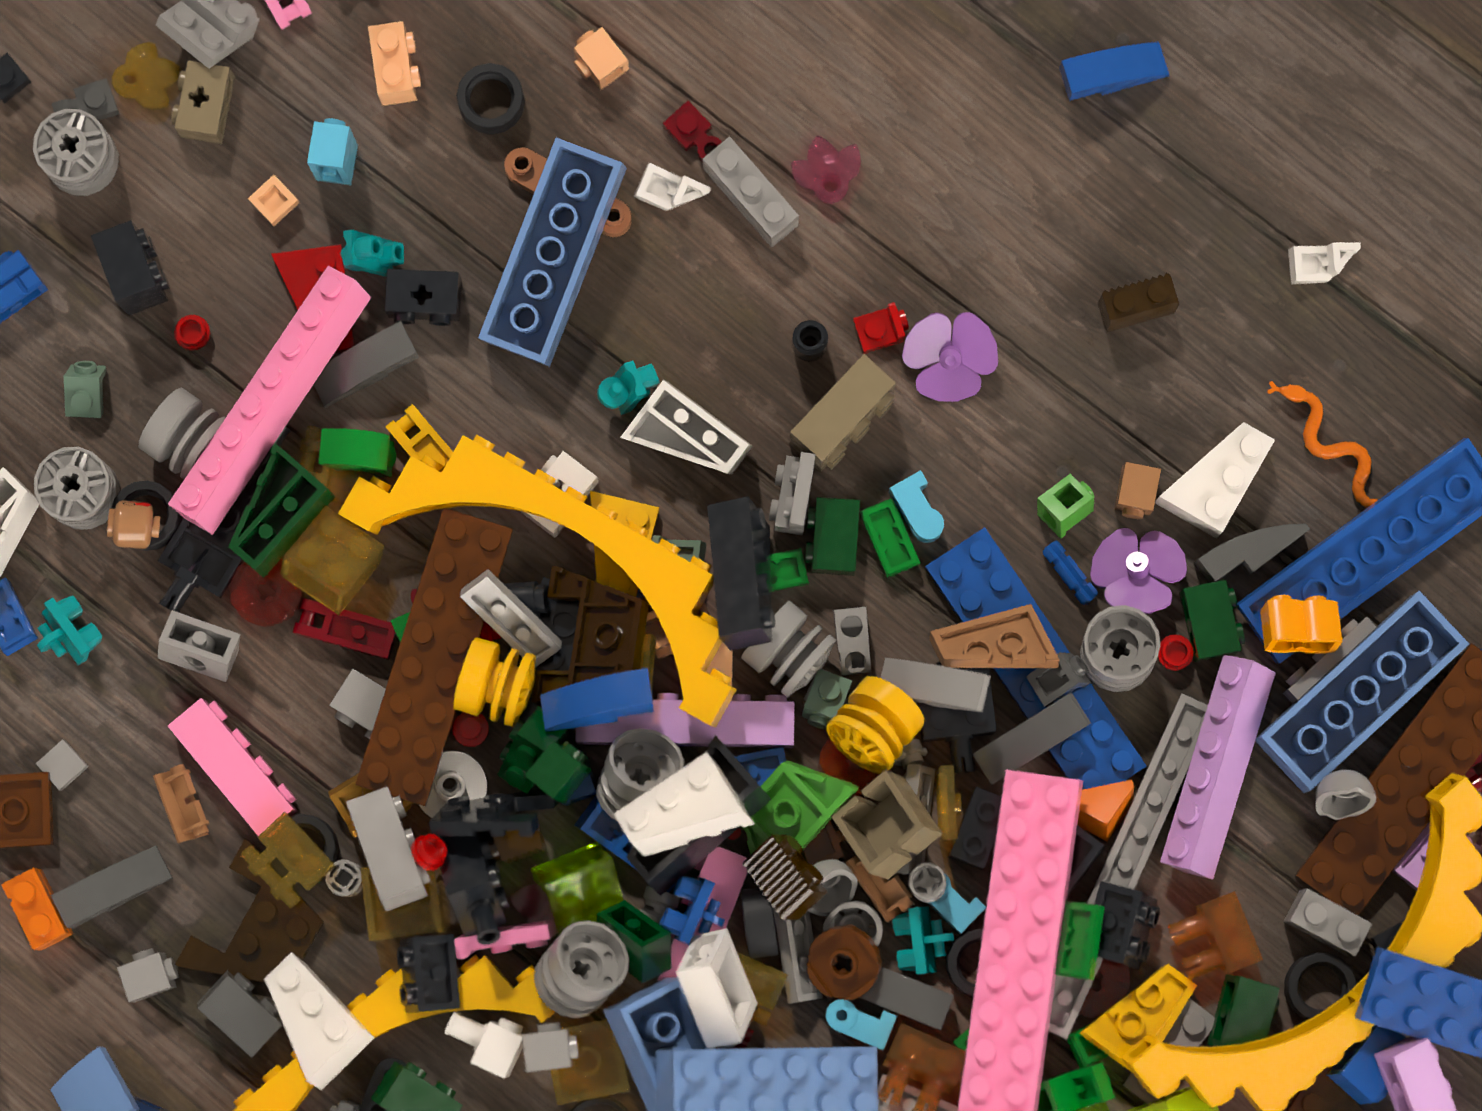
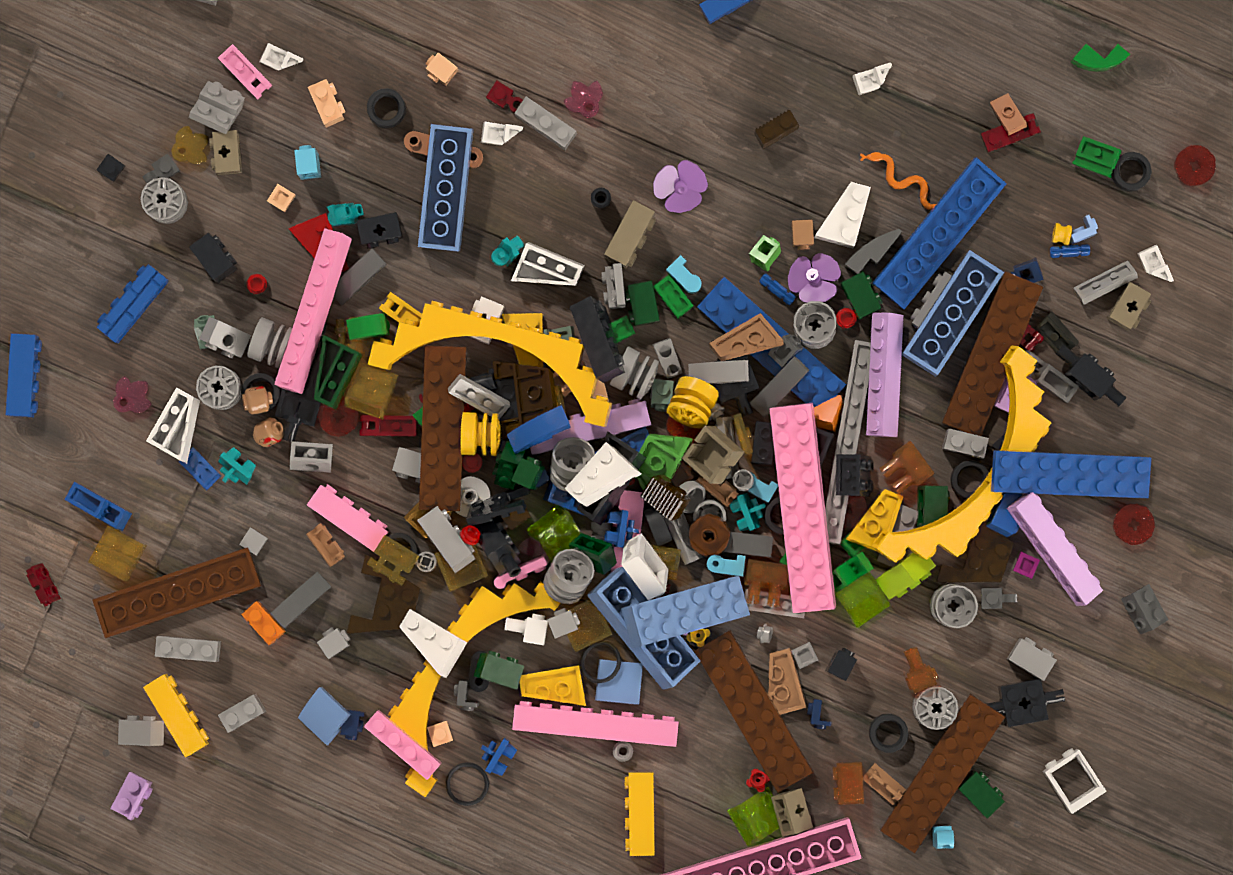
camera: 15 degrees left, 5 degrees up
(94, 392) = (235, 339): none -> light grey brick
(138, 585) = (268, 432): none -> medium nougat head
(240, 1012) = (389, 648): dark grey brick -> none
(428, 973) = (486, 600): black bracket -> none
(881, 328) = (638, 180): red bracket -> none
(1079, 940) = (833, 489): green plate -> none
(1301, 625) = (910, 286): light orange brick -> none
(1352, 794) = (953, 374): light grey helmet -> none

